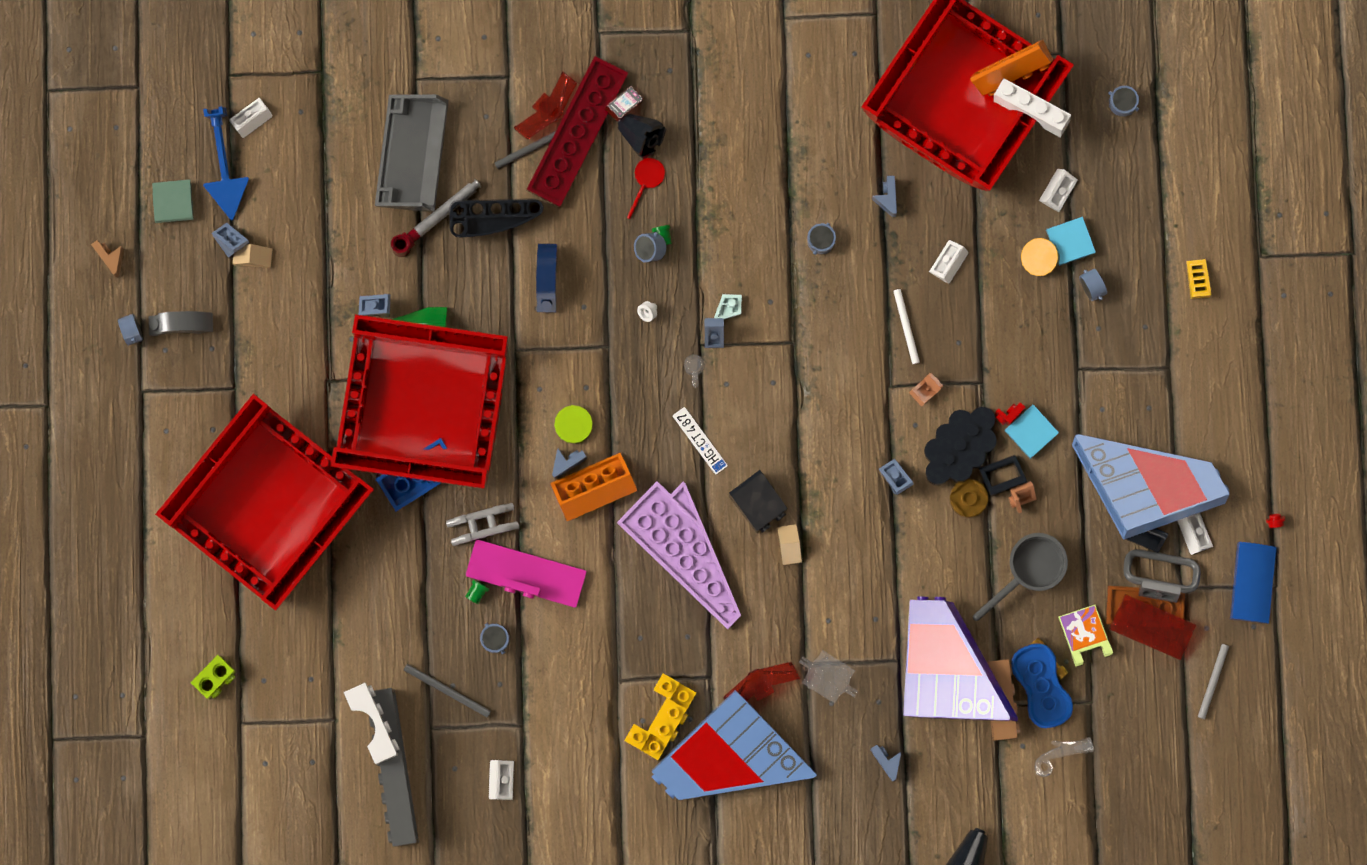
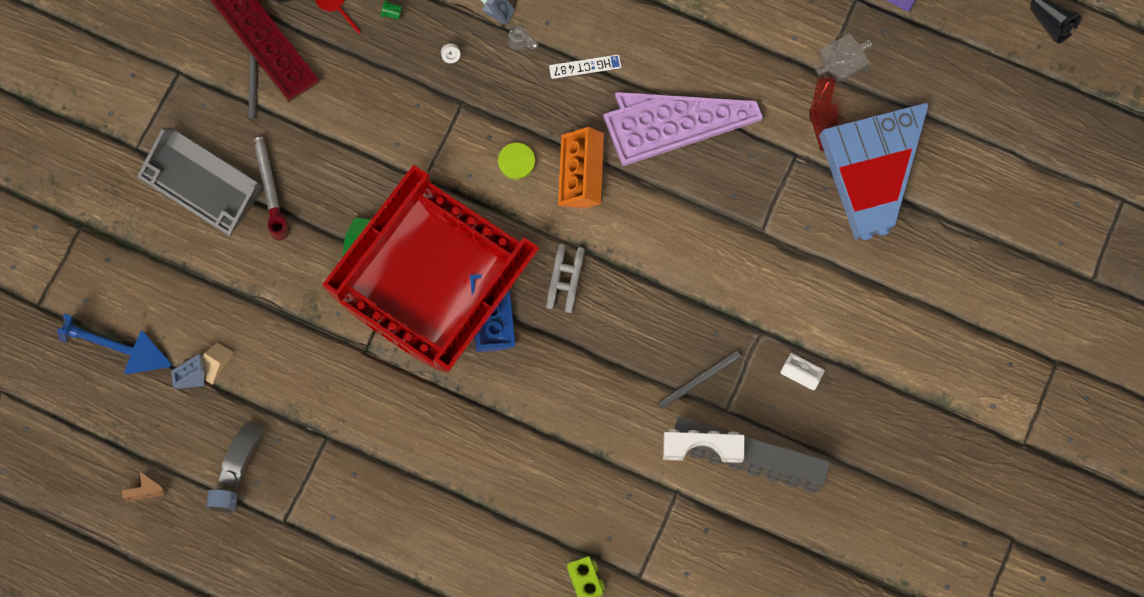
camera: 70 degrees left, 10 degrees down
(172, 201) = (124, 408): sand green slope -> none
(251, 118) = (87, 304): white slope -> none
(264, 502) = (452, 451): red slope -> none
(375, 305) = (319, 272): sand blue slope -> none
(476, 591) = (623, 310): green bush -> none
(488, 222) = (297, 144): black beam -> none
(494, 638) = (673, 315): pearl dark grey piece -> none
(525, 573) = (628, 262): dark pink bracket -> none
(546, 277) = (374, 115): dark blue arch -> none
(547, 108) = (226, 49): clear red plate -> none
(562, 466) = (547, 184): sand blue slope -> none
(650, 247) = (396, 22): piece -> none
(667, 720) = (817, 204): yellow bracket -> none
(758, 502) = (664, 40): black slope -> none
(789, 544) = (713, 35): tan slope -> none
(889, 766) = (944, 45): sand blue slope -> none

